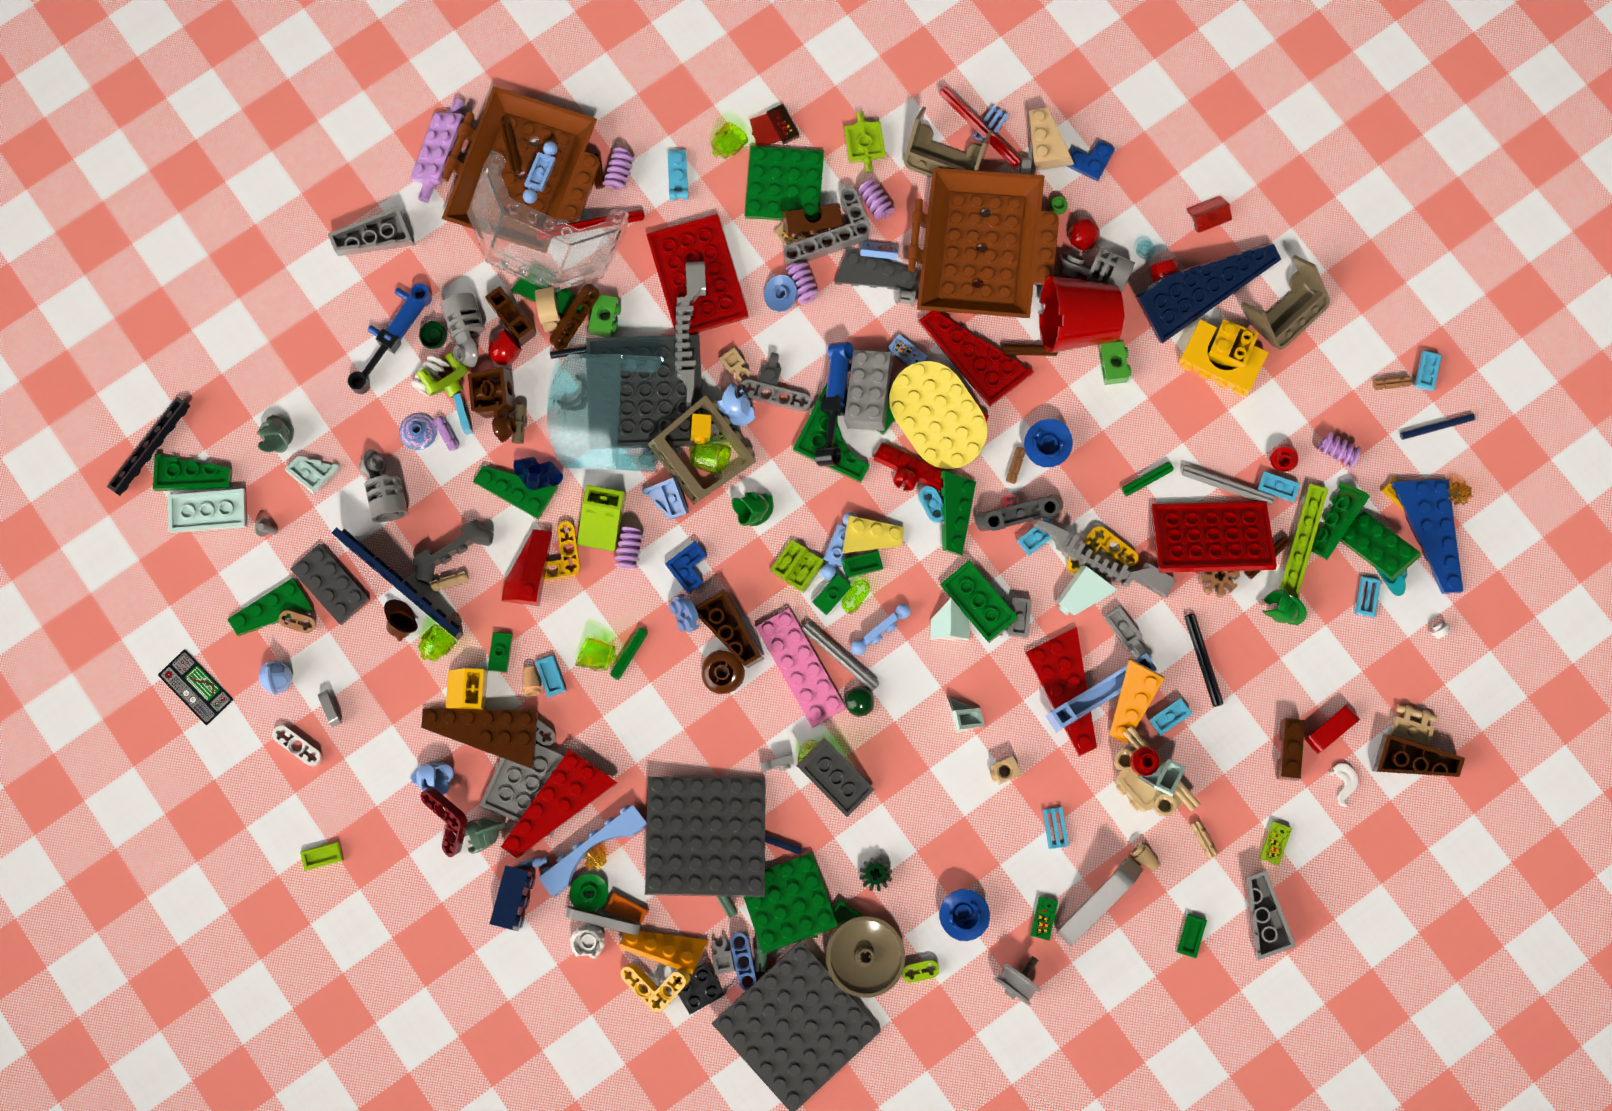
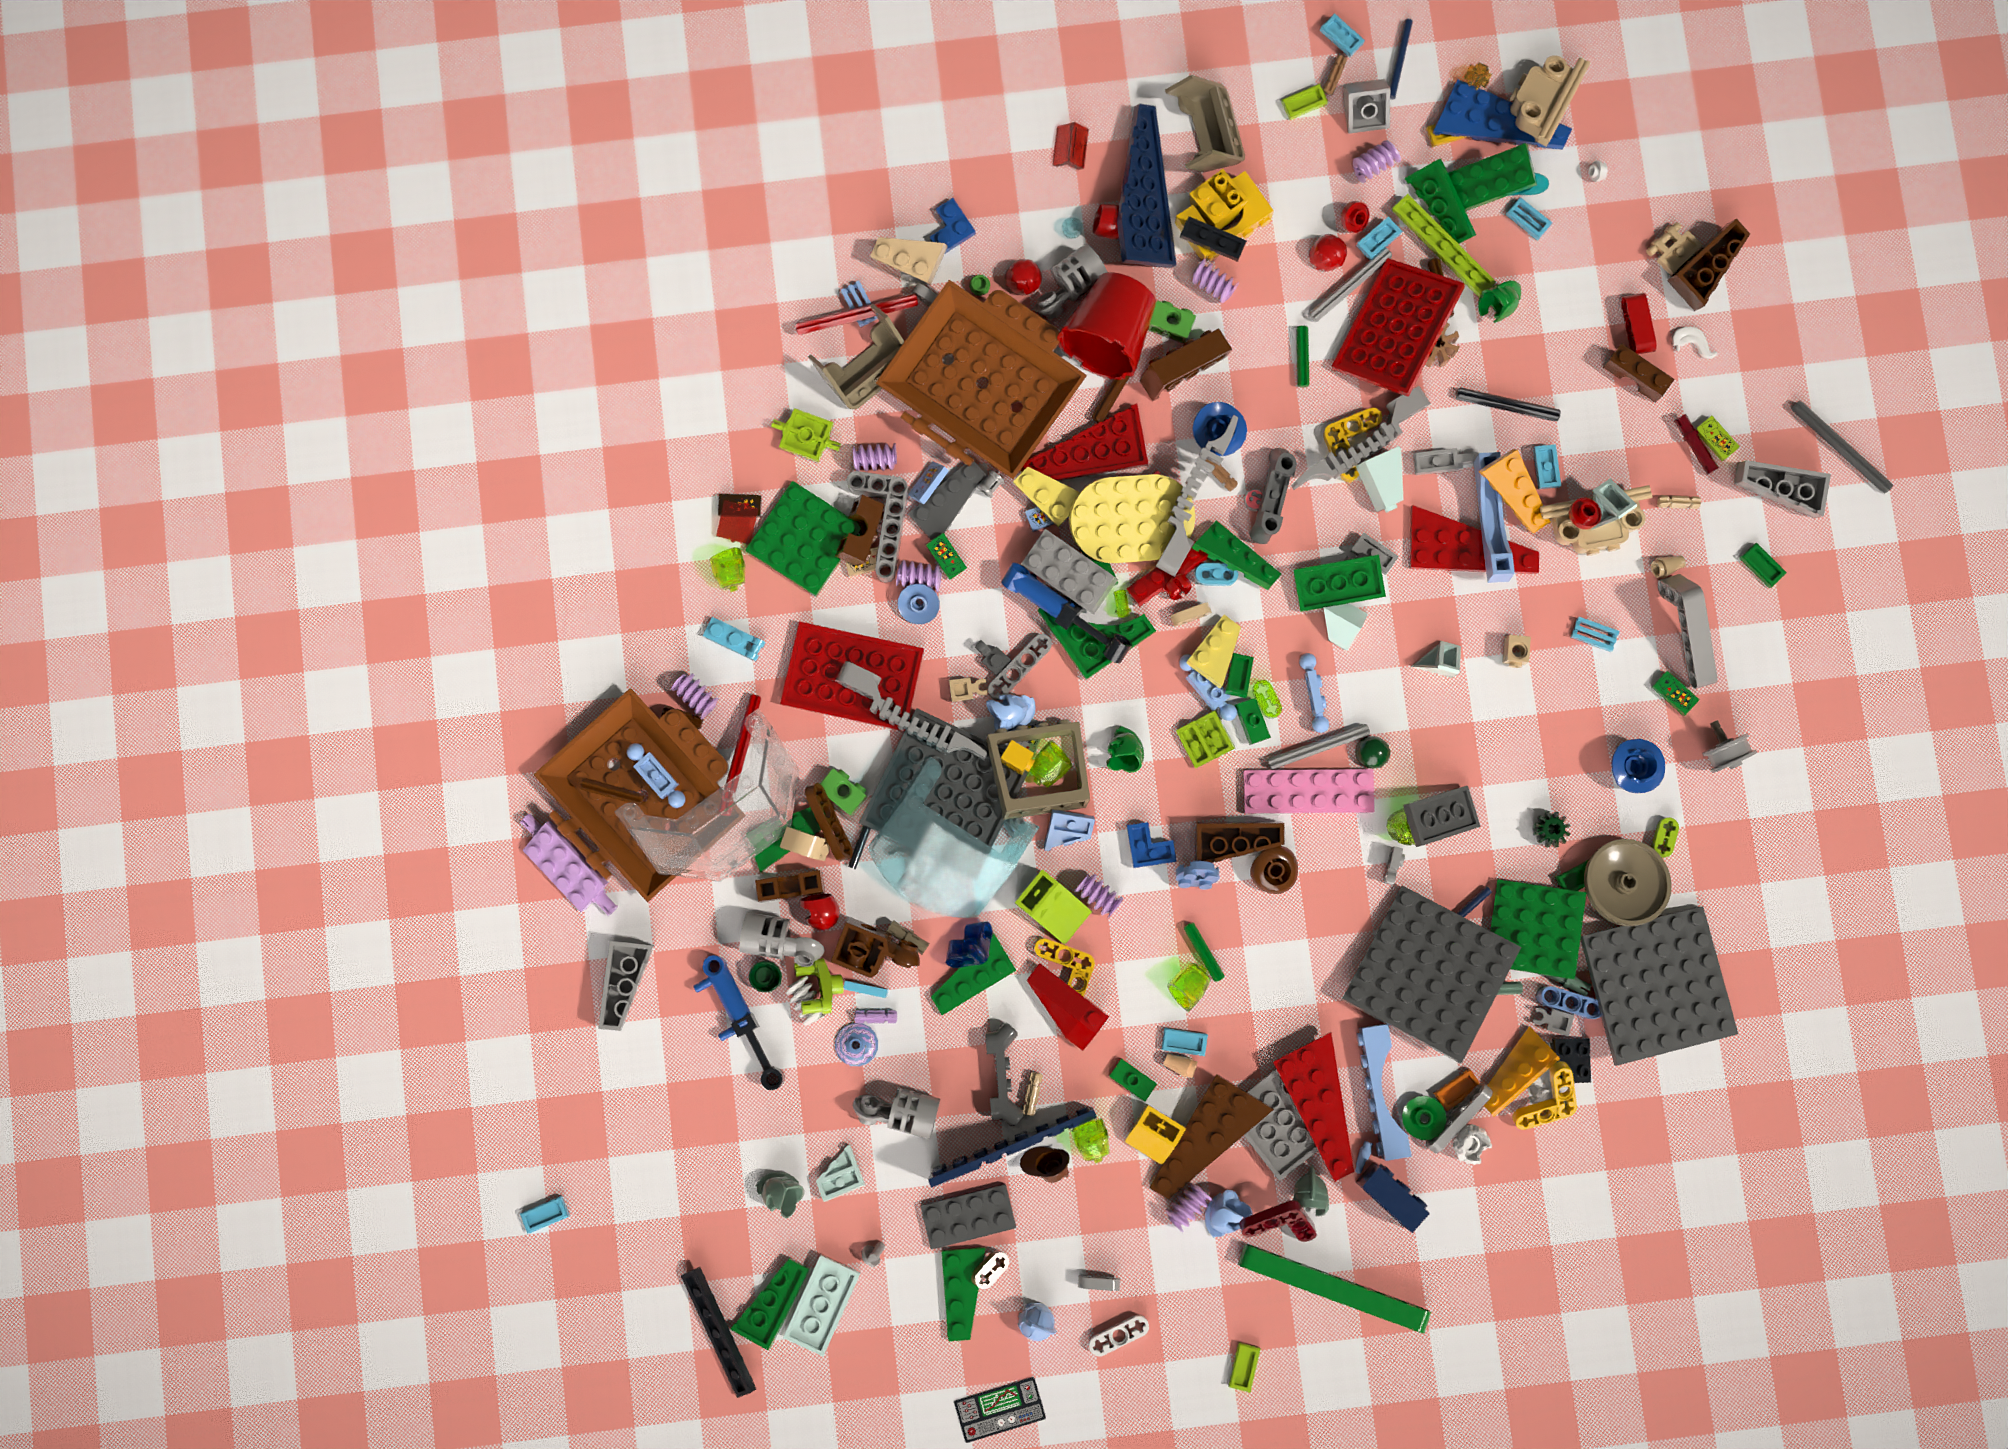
camera: 60 degrees left, 5 degrees up
(172, 276) = (544, 1214): none -> medium azure tile
(418, 893) = (1334, 1288): none -> green beam
(422, 745) = (1188, 1206): none -> lavender piece
(542, 727) = (1232, 1077): light grey beam -> none
(595, 858) = (1394, 1093): clear yellow gear -> none
(829, 294) = (946, 556): none -> green tile
(869, 444) = (1121, 601): none -> clear neon green pin
(889, 501) = (1190, 614): none -> tan beam
(921, 340) = (1047, 494): none -> light yellow wing
(935, 459) = (1180, 544): none -> light grey piece
(1034, 539) = (1304, 495): medium azure plate -> none
(1087, 389) = (1184, 362): none -> reddish brown wedge
(1164, 377) = (1214, 281): none -> lavender piece
(1197, 355) = (1213, 239): none -> black plate
(1242, 453) = (1328, 253): none -> red hair
(1263, 822) = (1696, 444): none -> dark red pin
(1329, 950) = (1842, 447): none -> dark grey axle
(1356, 371) = (1304, 101): none -> lime tile
(1381, 419) = (1367, 105): none -> light grey slope
(1475, 554) = (1546, 96): none -> tan brick

